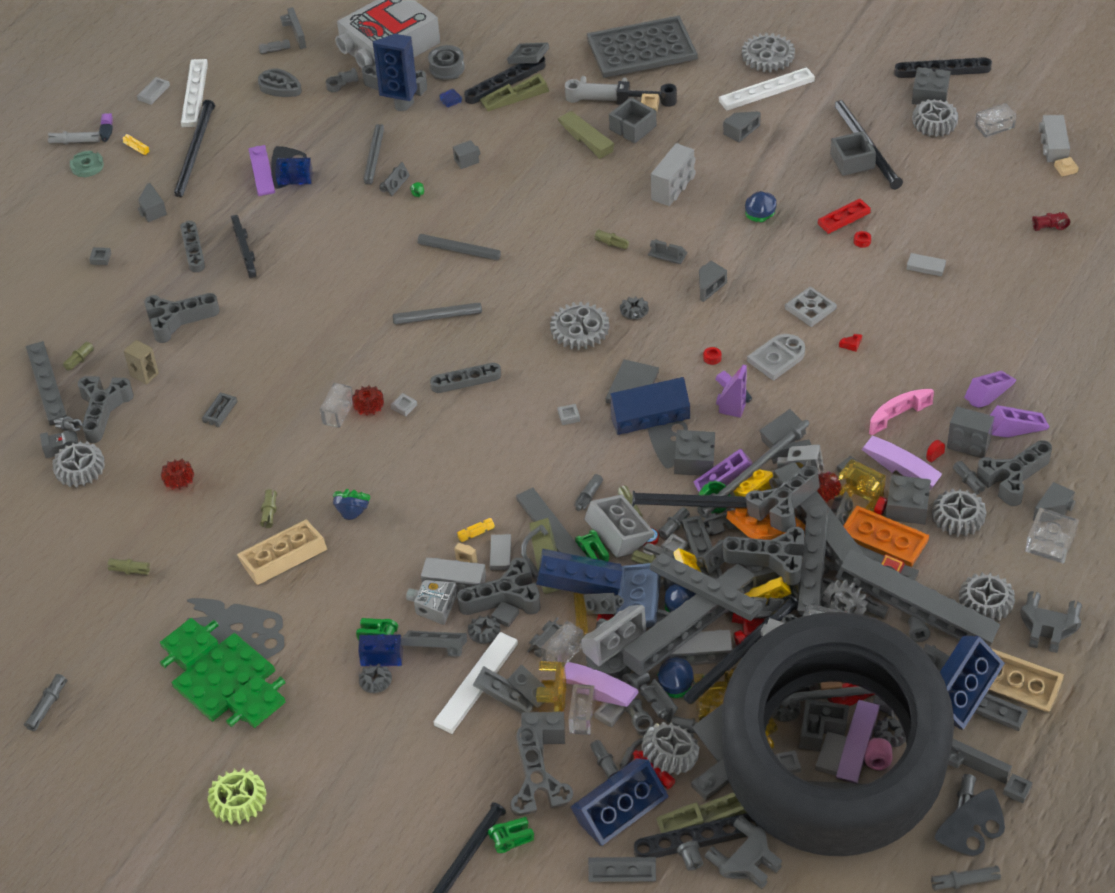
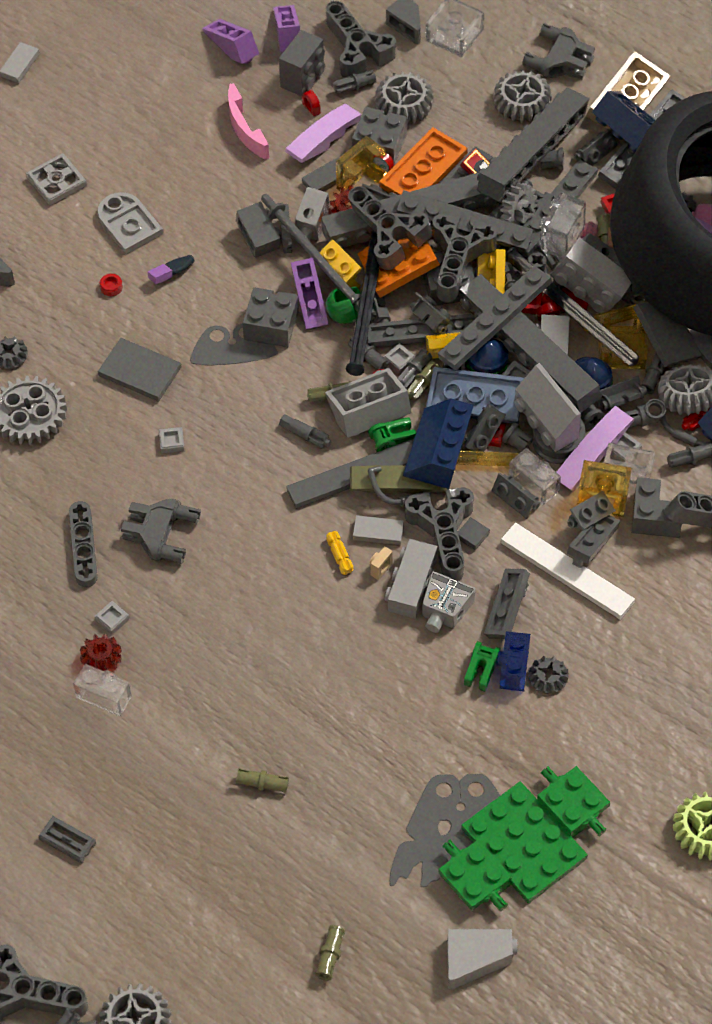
camera: 85 degrees left, 10 degrees up
(125, 652) = (477, 953): none -> light grey slope
(177, 474) = (178, 881): clear red gear -> none
(282, 551) = (335, 768): tan slope -> none
(351, 503) = (277, 680): dark blue hair -> none
(482, 415) = (156, 527): none -> dark grey connector
(488, 634) = (498, 563): dark grey gear -> none
(650, 406) = (194, 350): dark blue slope -> none
(733, 396) = (197, 259): medium lavender slope -> none
(851, 343) = (124, 151): red tile -> none

